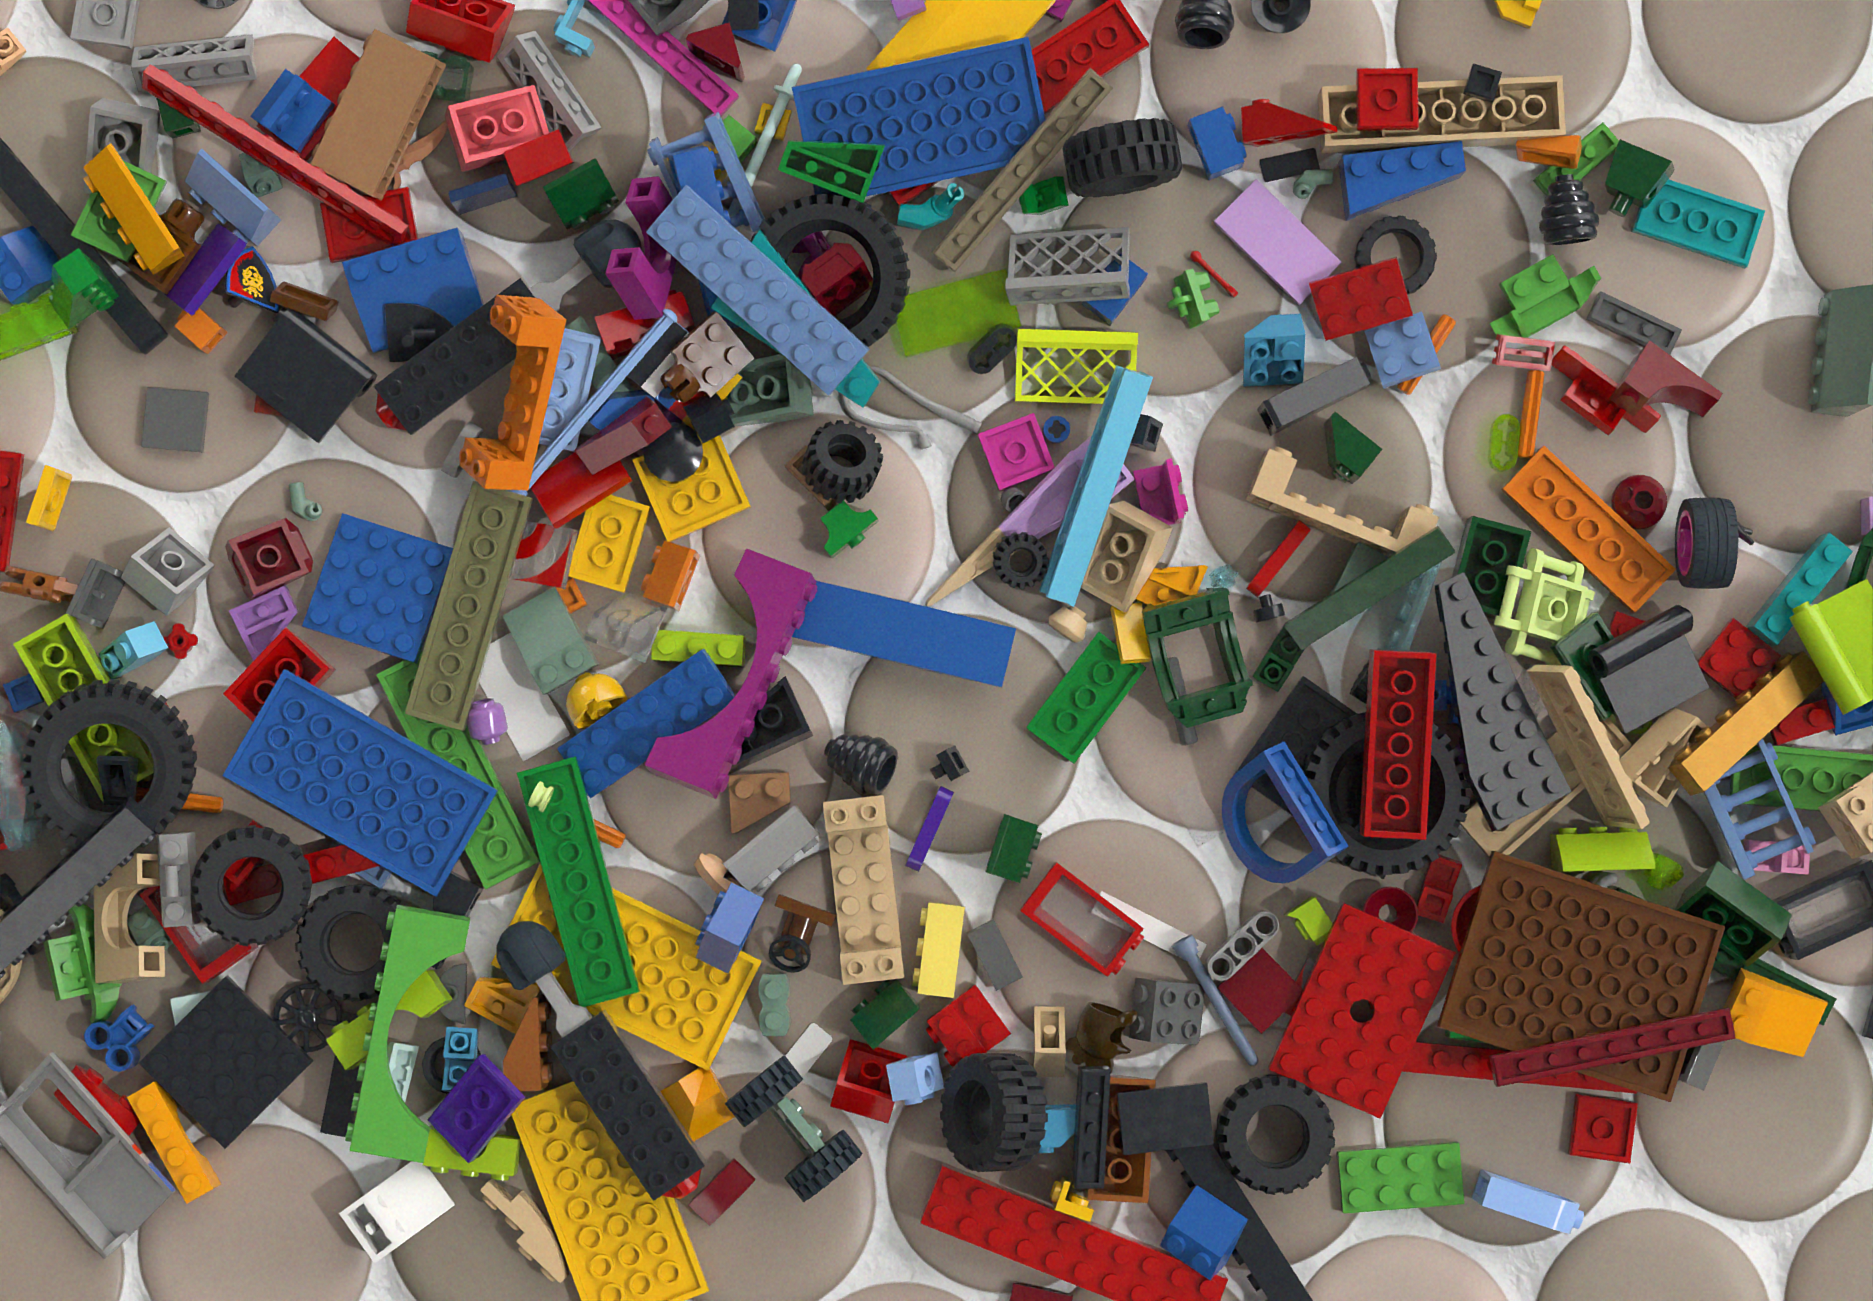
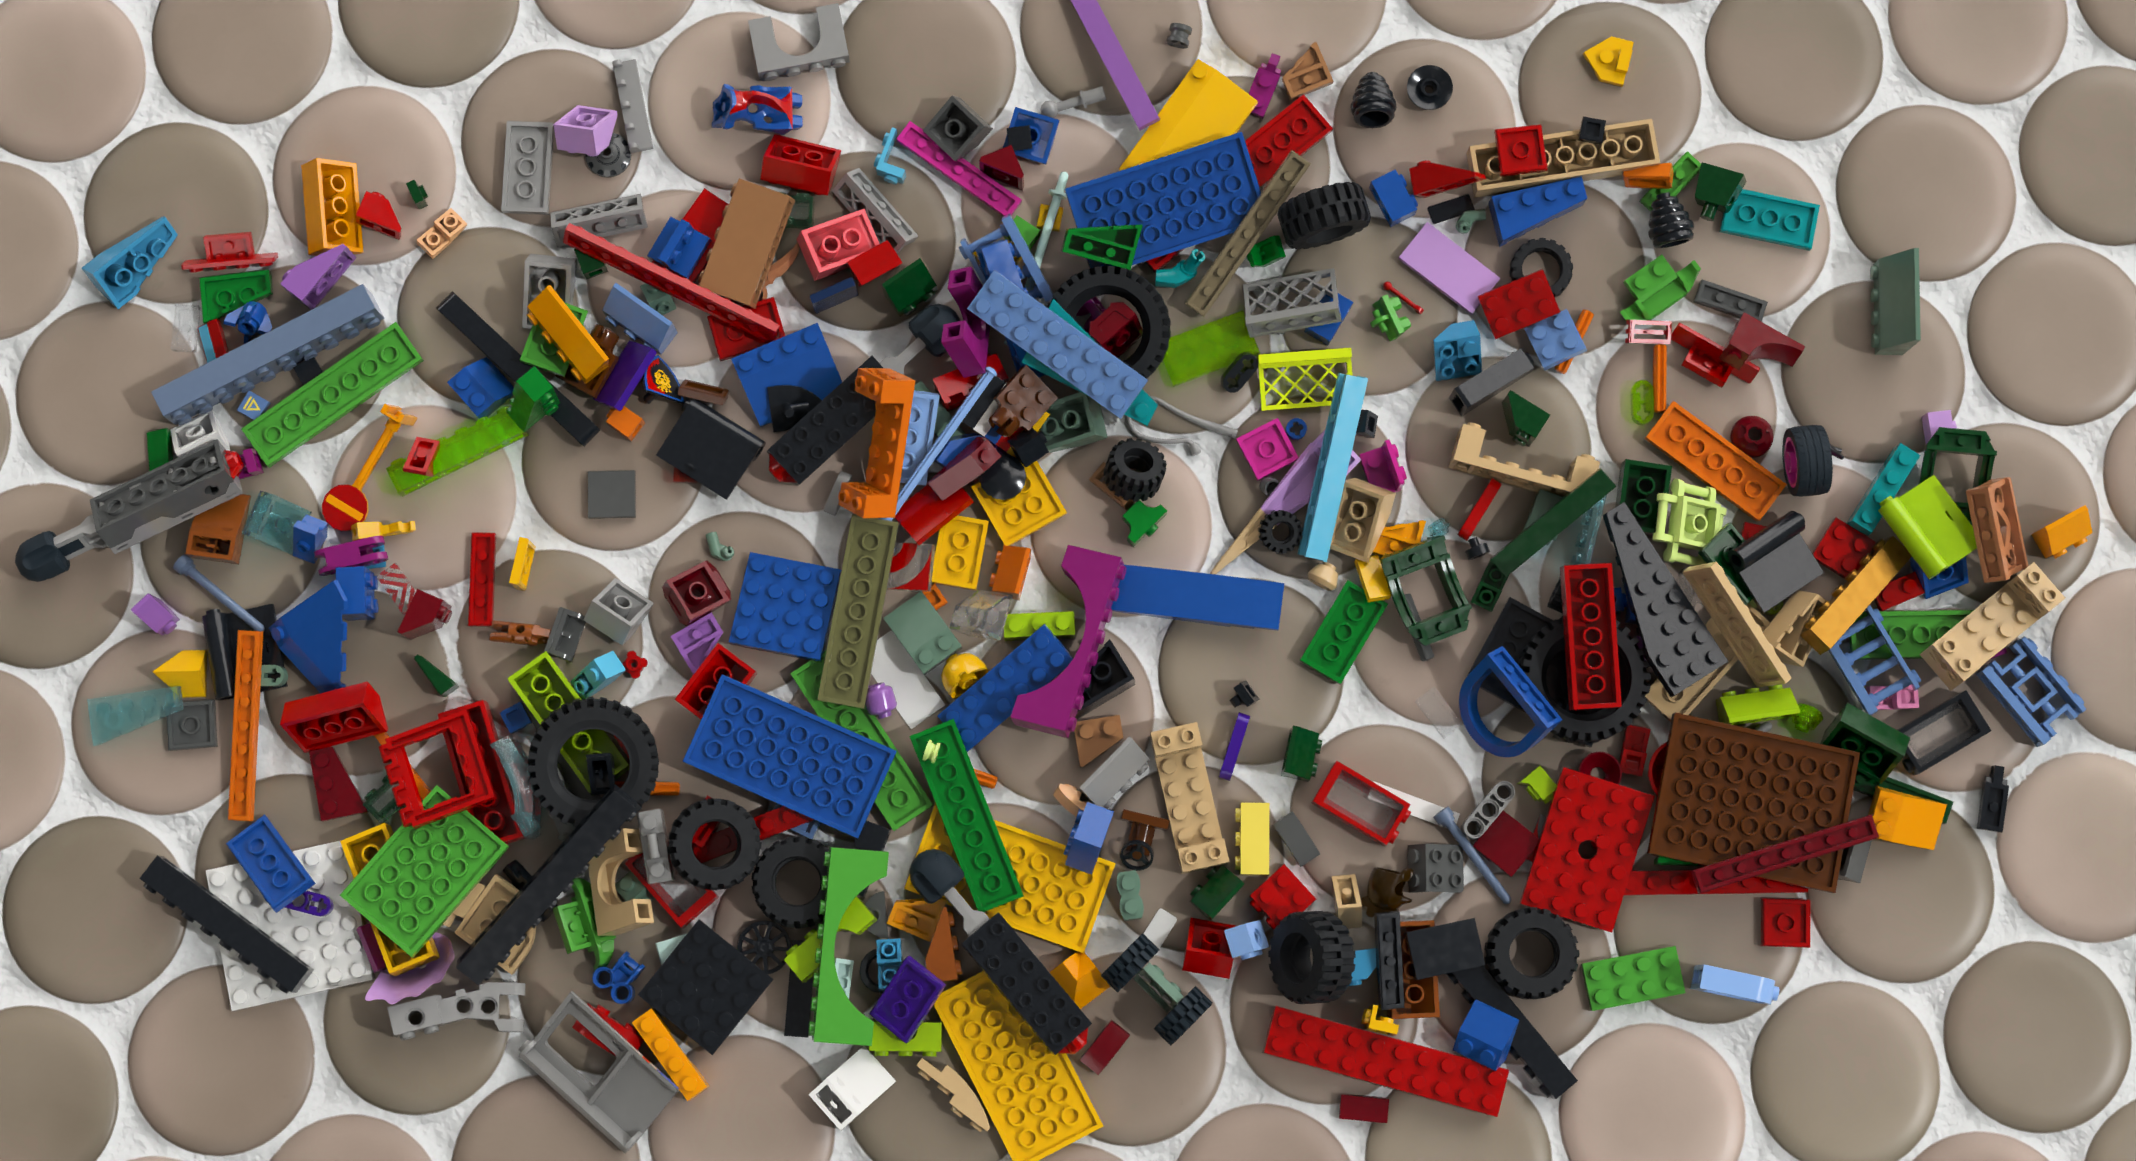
camera: 10 degrees left, 5 degrees down
(862, 762) = (1176, 699): black piece -> none

